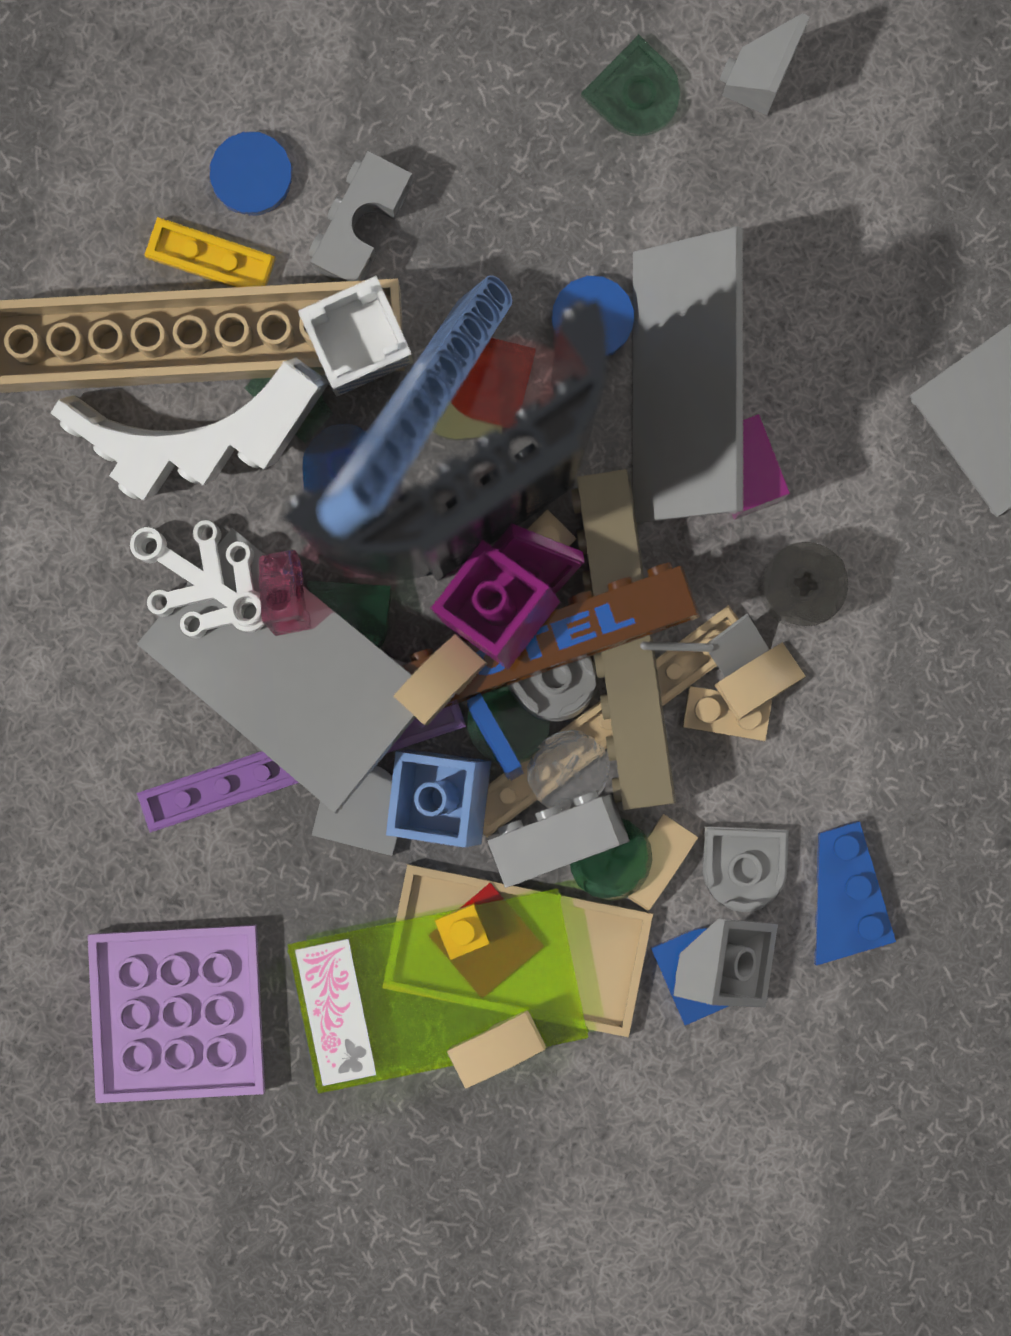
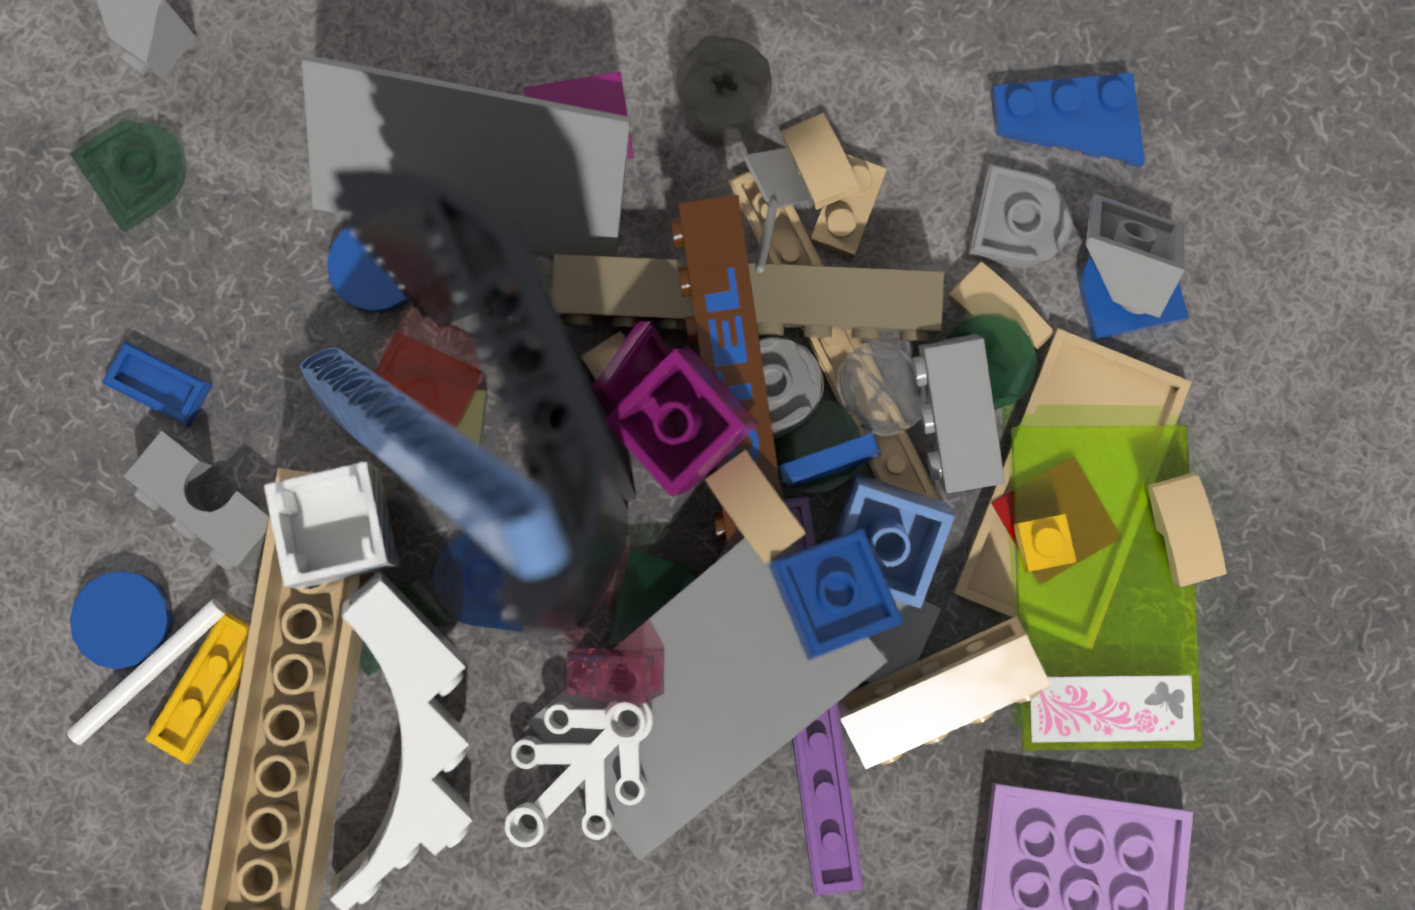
camera: 85 degrees left, 5 degrees down
(212, 205) = (146, 672): none -> white bar
(319, 866) = (942, 693): none -> brick
(380, 759) = (835, 594): none -> blue tile
(454, 155) = (157, 384): none -> blue tile

